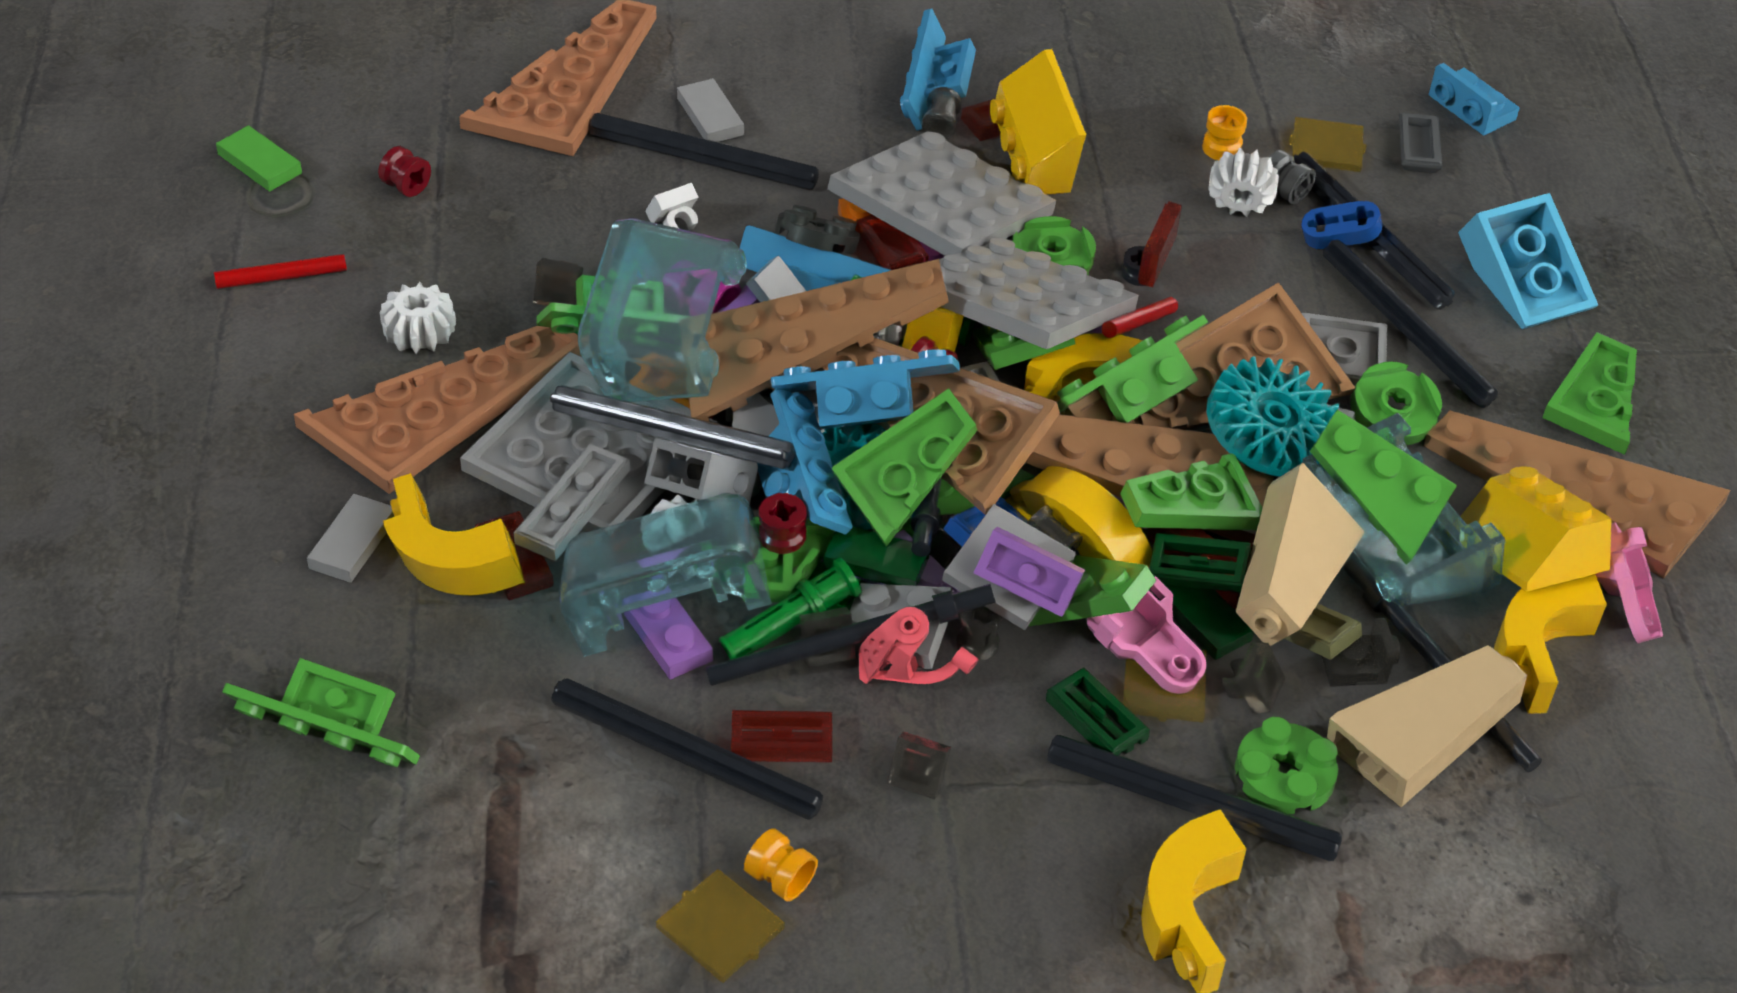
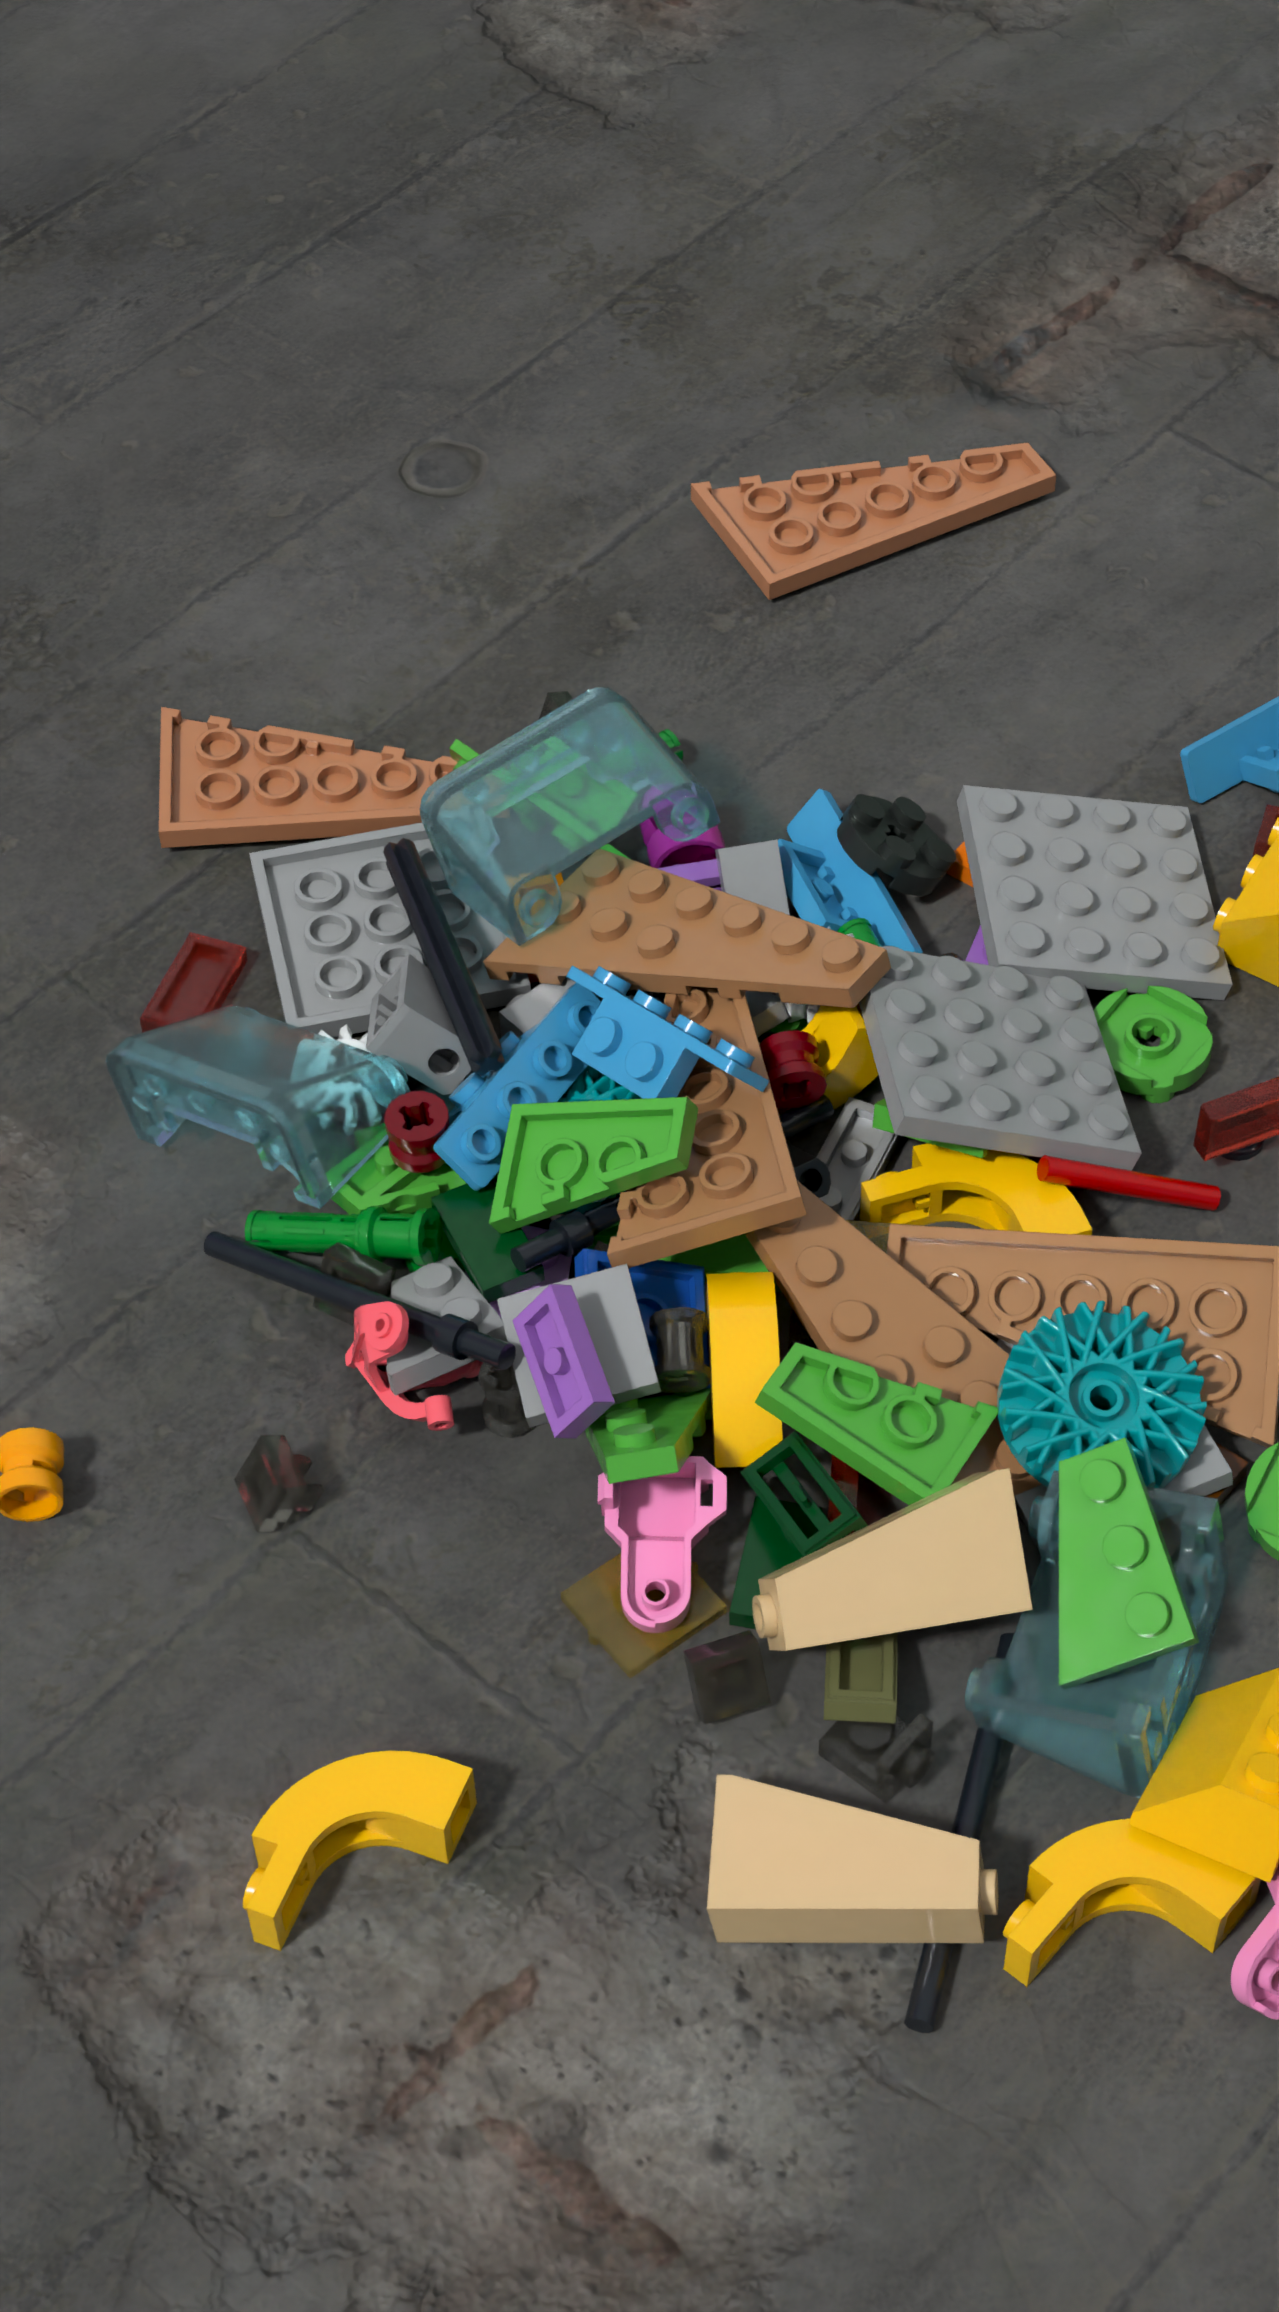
camera: 50 degrees right, 5 degrees up
(259, 158) = (460, 417): bright green tile -> none
(280, 271) = (339, 551): red bar -> none
(350, 538) = (78, 869): light grey tile -> none
(404, 171) = (568, 513): dark red wheel -> none
(418, 317) = (391, 681): white gear -> none
(450, 561) = (106, 921): yellow arch -> none
(572, 501) = (286, 968): light grey tile -> none
(671, 637) = (224, 1183): medium lavender plate -> none
(674, 204) = (786, 717): white tile -> none
(688, 748) = (102, 1301): black axle -> none
(704, 151) = (909, 678): black axle -> none
(710, 111) = (976, 635): light grey tile -> none
(781, 742) = (234, 1386): clear red tile -> none
(890, 245) = (953, 918): clear red tile -> none
(942, 107) = (1230, 795): clear smoke bush -> none
(1090, 717) = (518, 1627): dark green tile -> none
(1142, 381) = (1001, 1250): bright green bracket -> none
(1194, 797) = (504, 1749): black axle -> none
(1289, 743) = (641, 1755): bright green plate -> none

